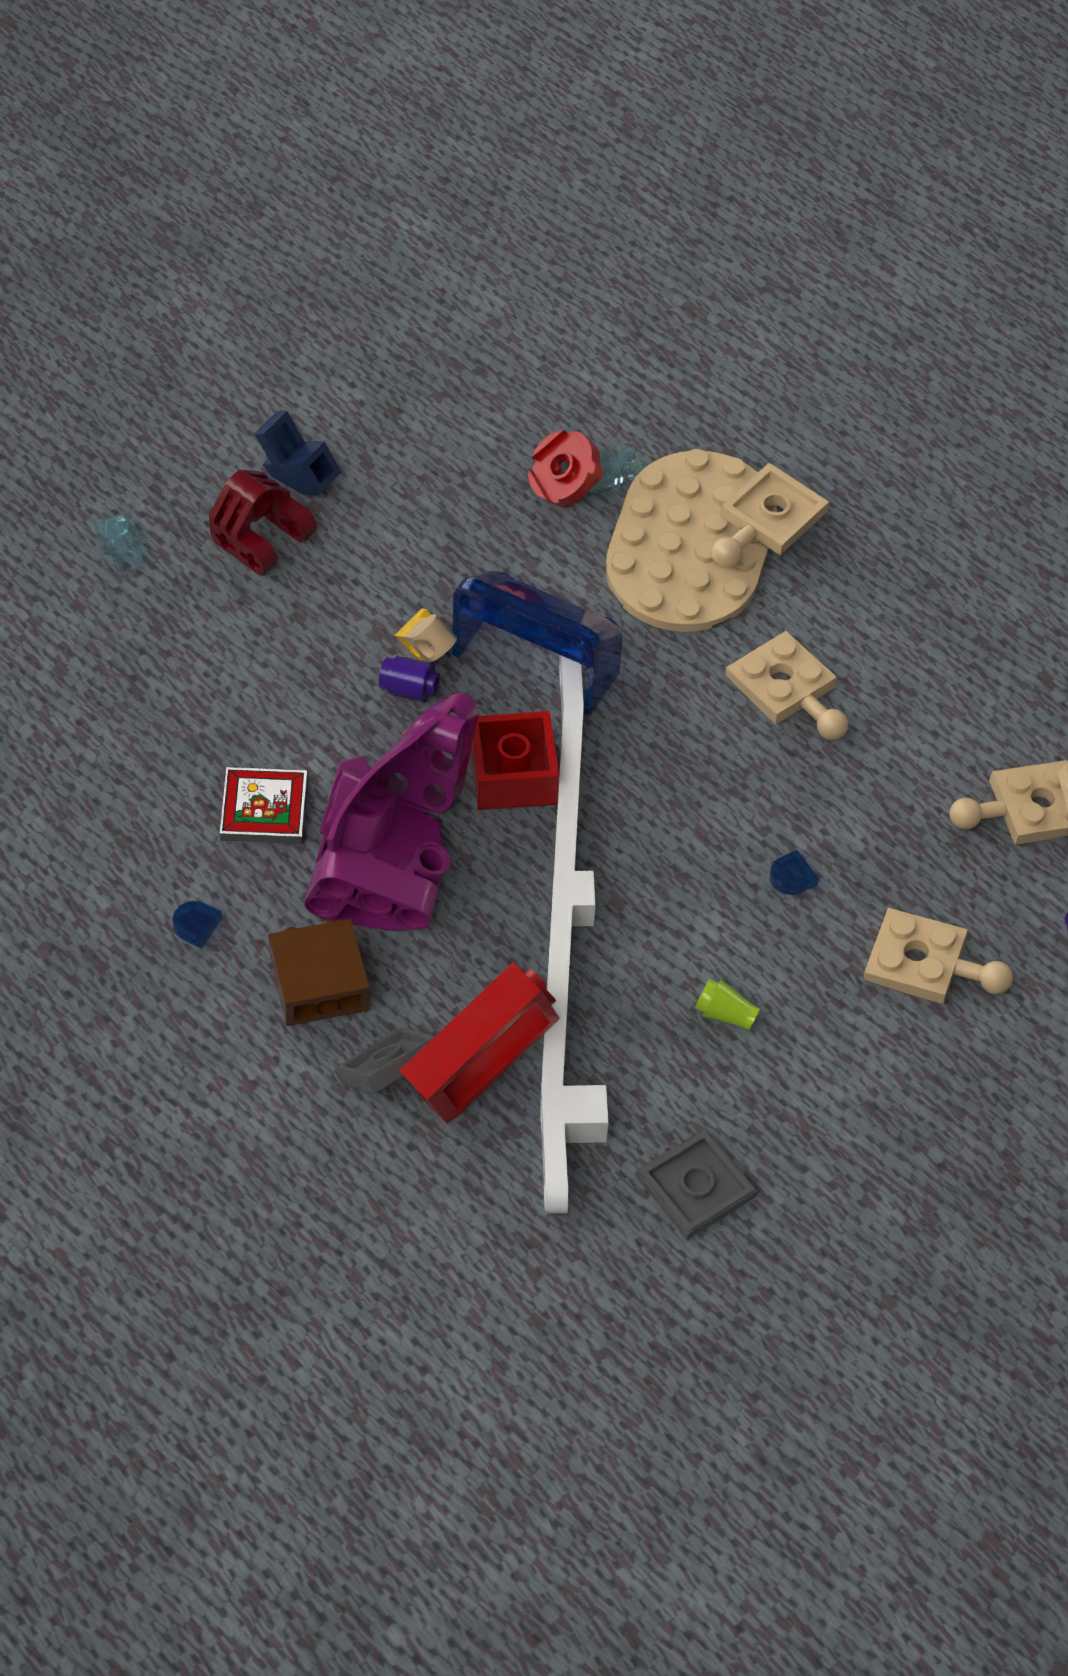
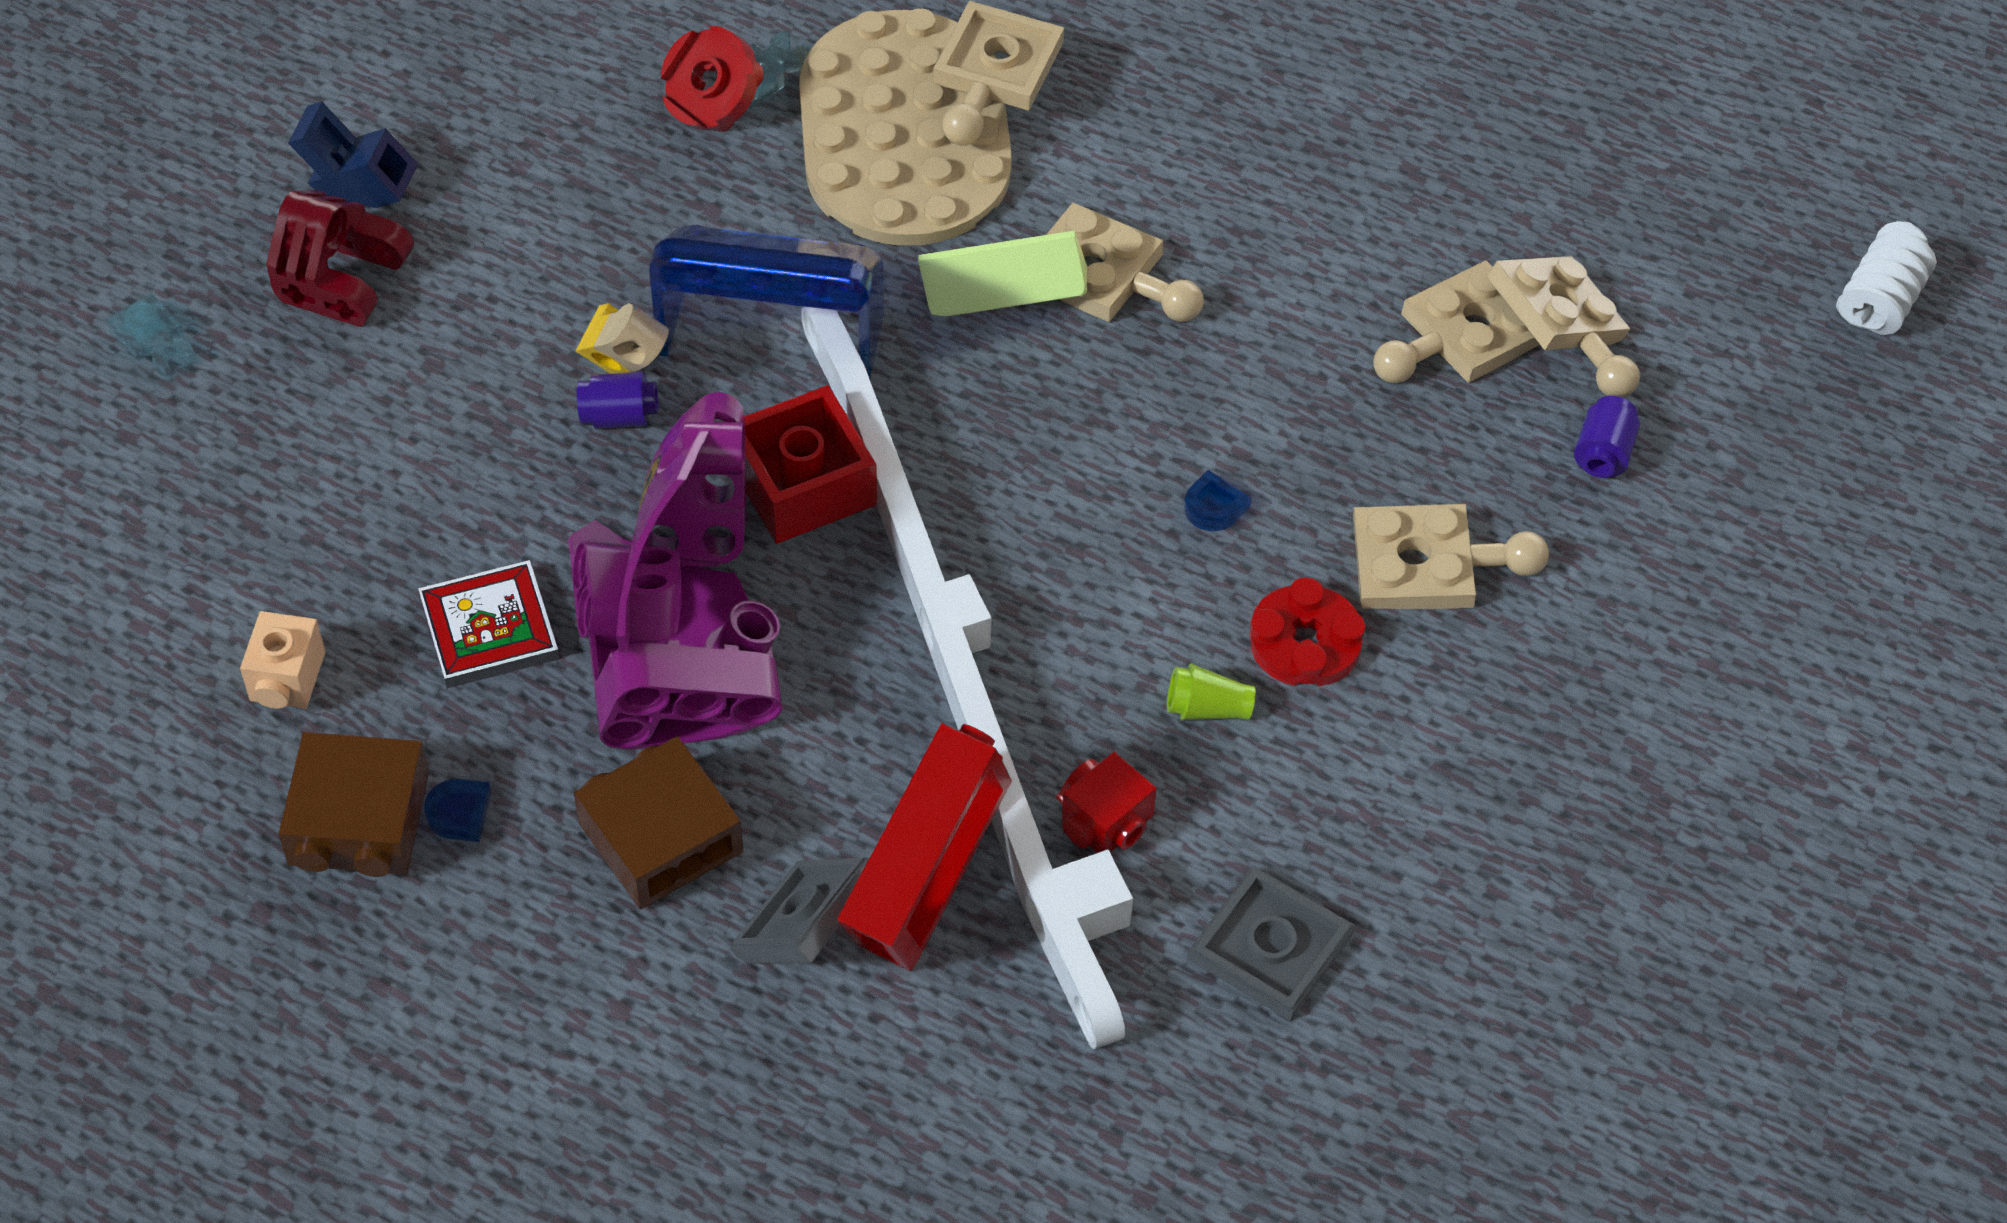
camera: 20 degrees left, 0 degrees up
(118, 788) = (282, 660): none -> light nougat brick
(128, 897) = (354, 804): none -> reddish brown brick
(622, 1056) = (1106, 804): none -> red brick
(710, 668) = (1004, 274): none -> yellowish green slope
(818, 964) = (1306, 605): none -> red plate

